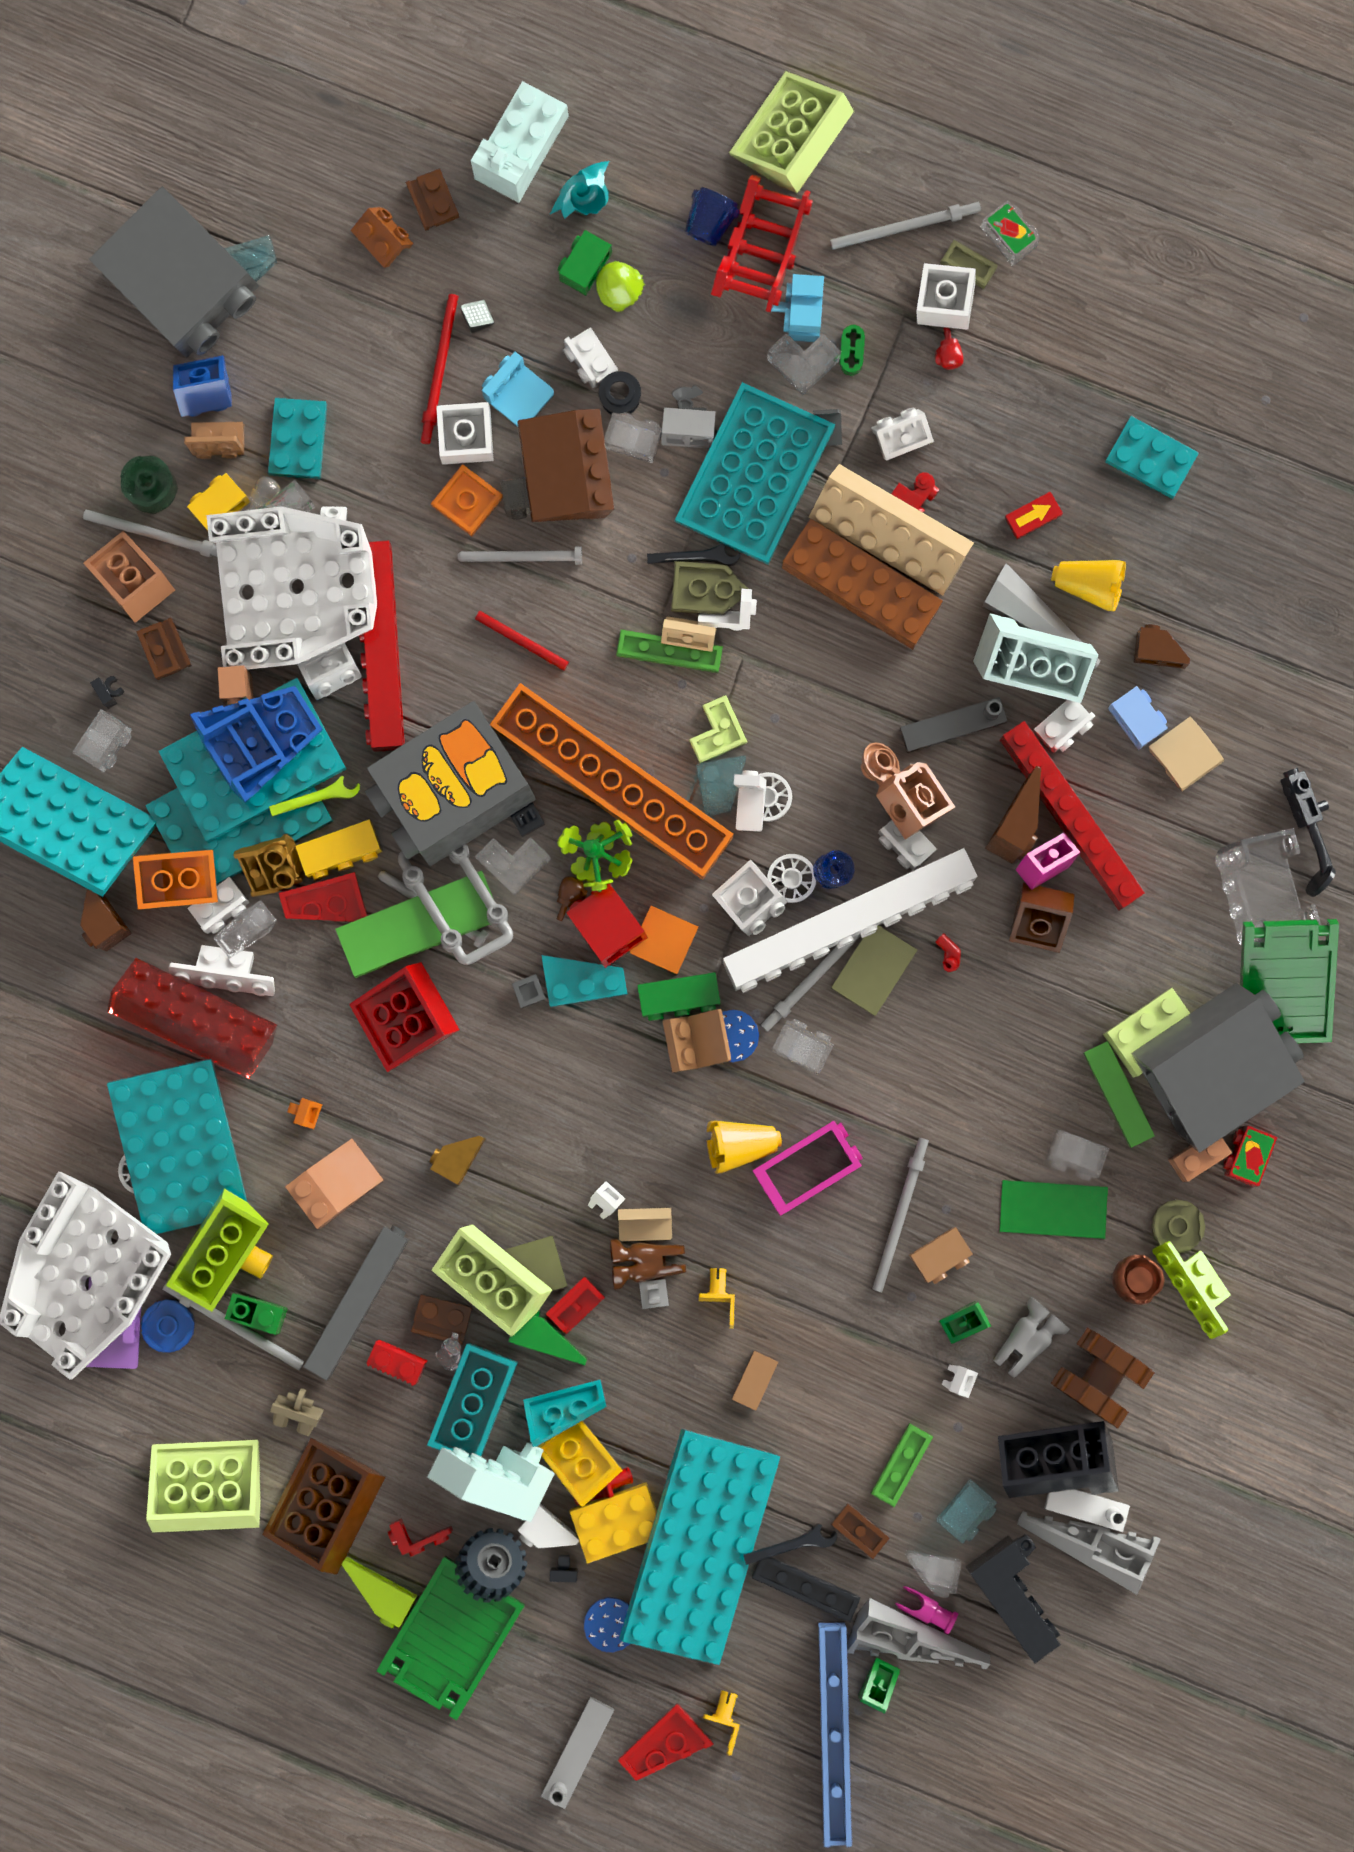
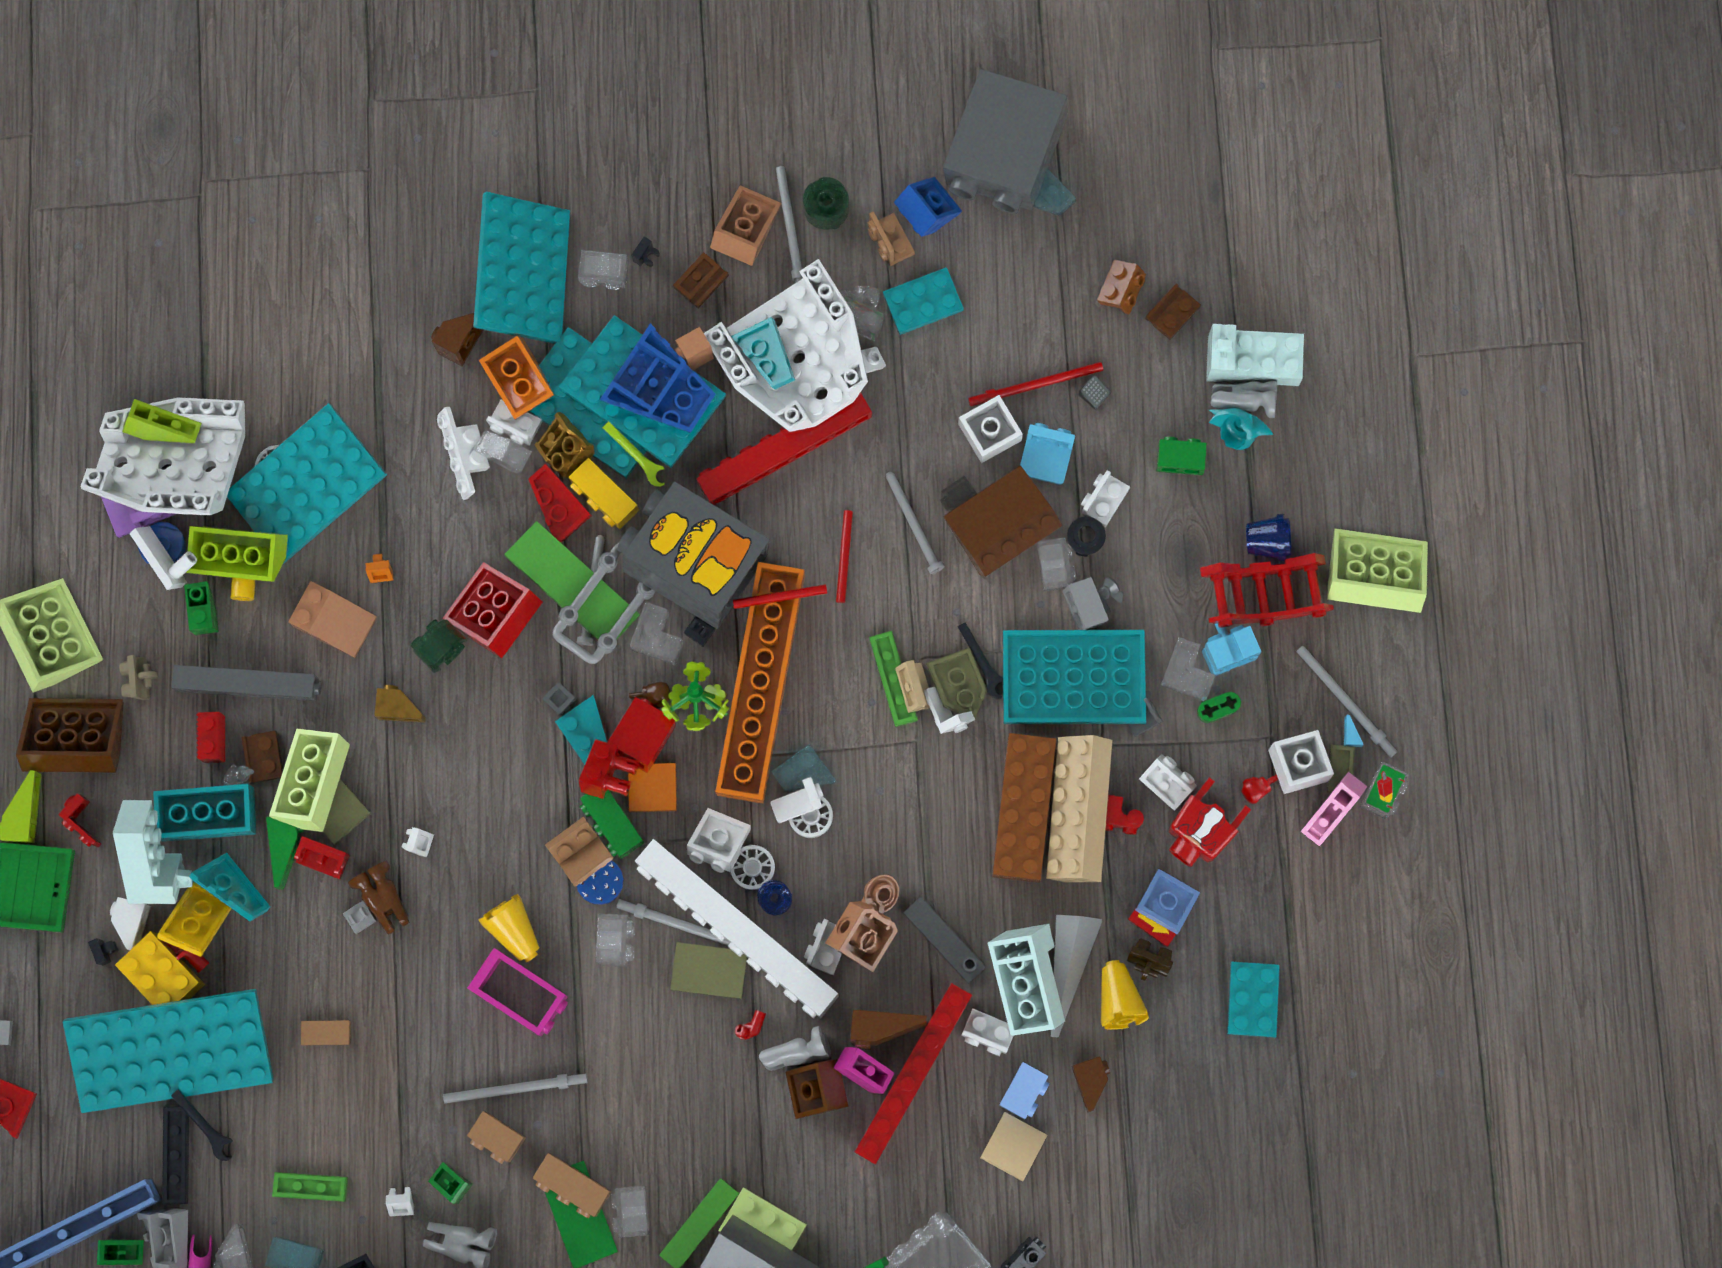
camera: 65 degrees right, 5 degrees down
(39, 1271) = (159, 424): none -> lime slope
(192, 1018) = (412, 444): clear red brick -> none
(201, 1330) = (168, 572): none -> white piece
(219, 498) = (841, 265): yellow brick -> none
(241, 1330) = (182, 618): light grey bar -> none
(276, 614) = (766, 351): none -> teal wing
(330, 671) = (744, 417): white bracket -> none
(416, 1085) = (438, 644): none -> clear green brick
(467, 500) = (938, 457): orange tile -> none
(490, 1565) = (80, 888): black wheel -> none
(536, 719) = (780, 596): none -> red bar
(557, 168) = (1246, 396): none -> light grey piece
(605, 1622) = (75, 1002): blue tile -> none
(619, 285) = (1176, 493): lime hair -> none
(630, 984) = (600, 767): none -> red brick
(645, 1224) = (413, 883): tan panel -> none
(717, 1291) = (382, 968): yellow bracket -> none
(723, 1716) = (41, 1135): yellow bracket -> none
(725, 731) = (845, 756): yellowish green tile -> none
(860, 1530) = (240, 1177): reddish brown plate -> none
(938, 237) = (1351, 736): none -> medium azure piece
(967, 421) = (1202, 829): none -> red piece
(997, 919) = (797, 1051): none -> light grey piece
(1006, 287) = (1334, 809): none -> bright pink slope
(1019, 491) = (1167, 901): none -> medium blue tile
(1024, 1202) = (571, 1186): none -> medium nougat brick
(1071, 538) = (1150, 963): none -> dark brown hips

